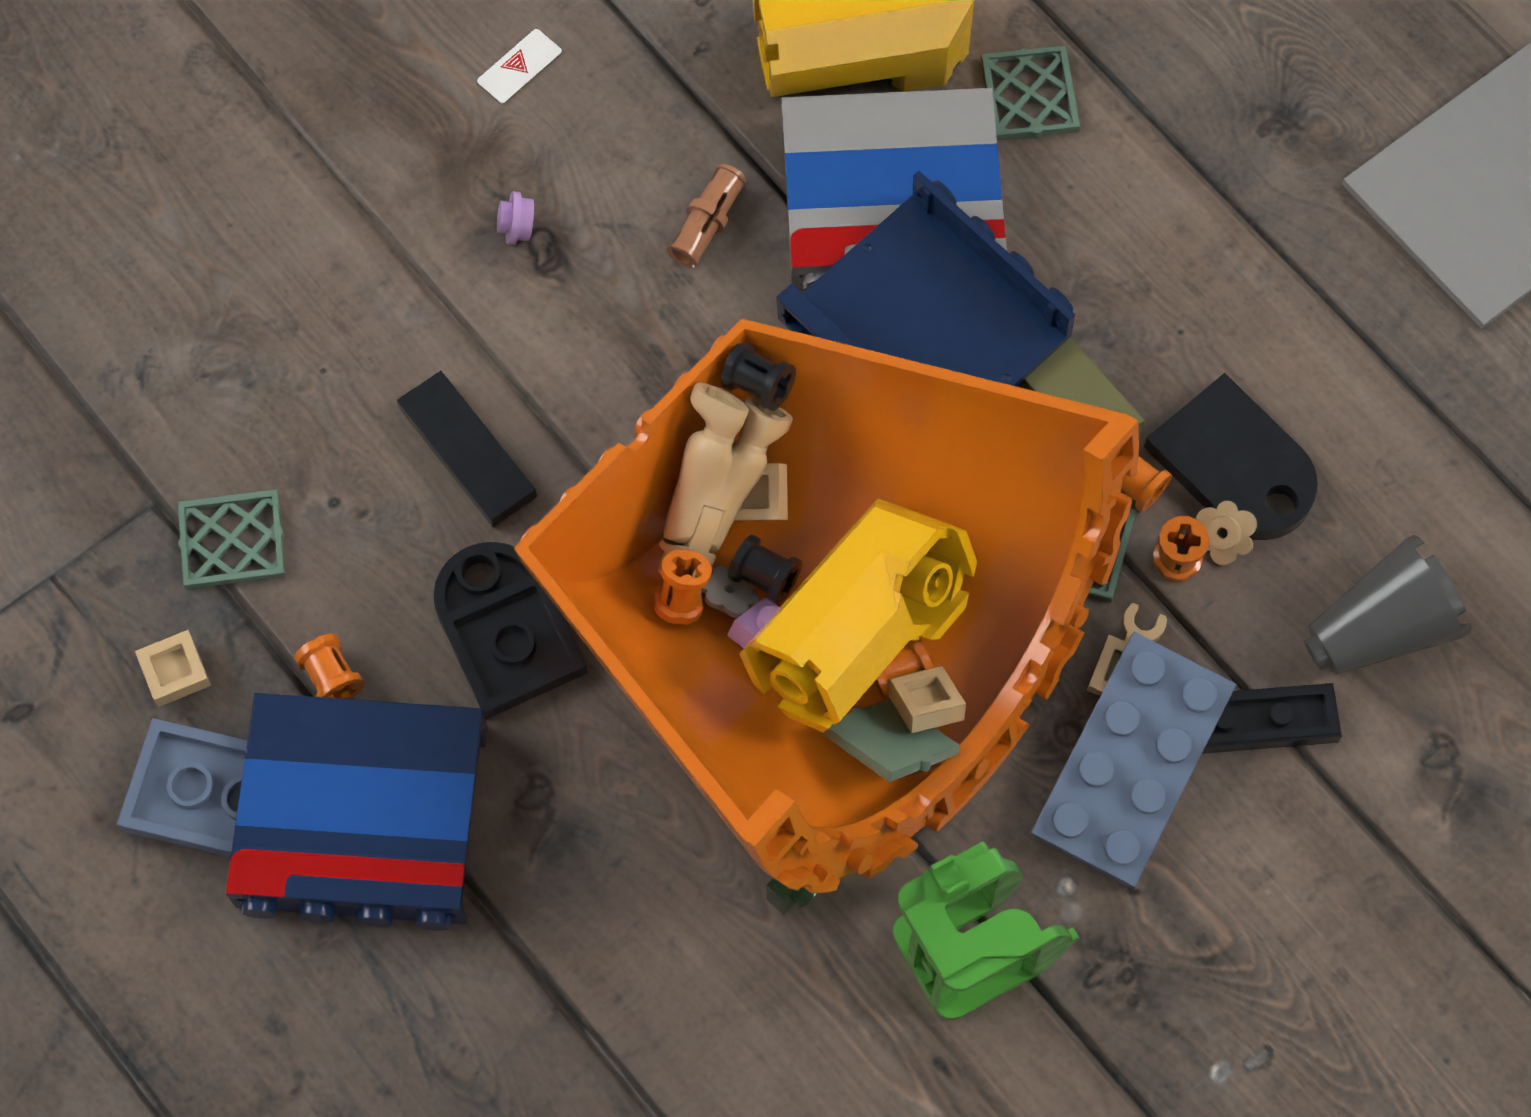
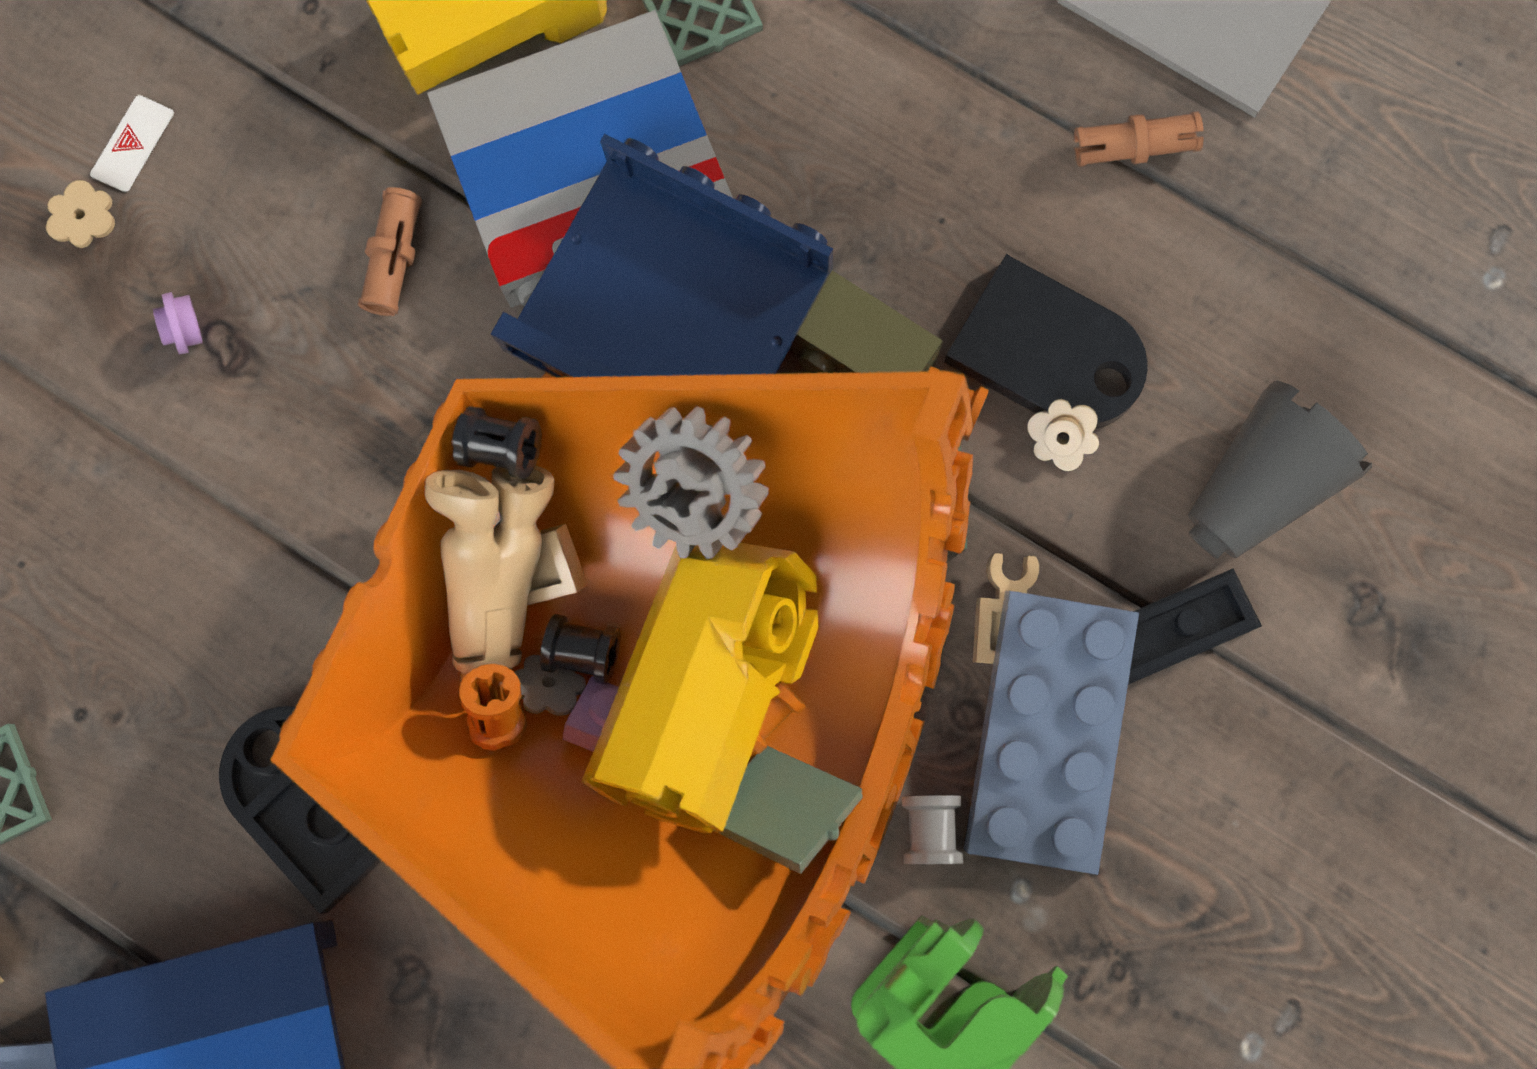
camera: 15 degrees left, 10 degrees up
(329, 668) = (129, 924): orange bush -> none
(461, 99) = (80, 215): none -> tan plant
(467, 448) = (207, 606): black tile -> none
(910, 425) = (692, 477): none -> light grey gear
(926, 699) = (808, 747): tan plate -> none
(1007, 806) = (932, 830): none -> light grey bush
(1195, 547) = (1036, 456): orange bush -> none
(1370, 314) = (1138, 139): none -> nougat pin

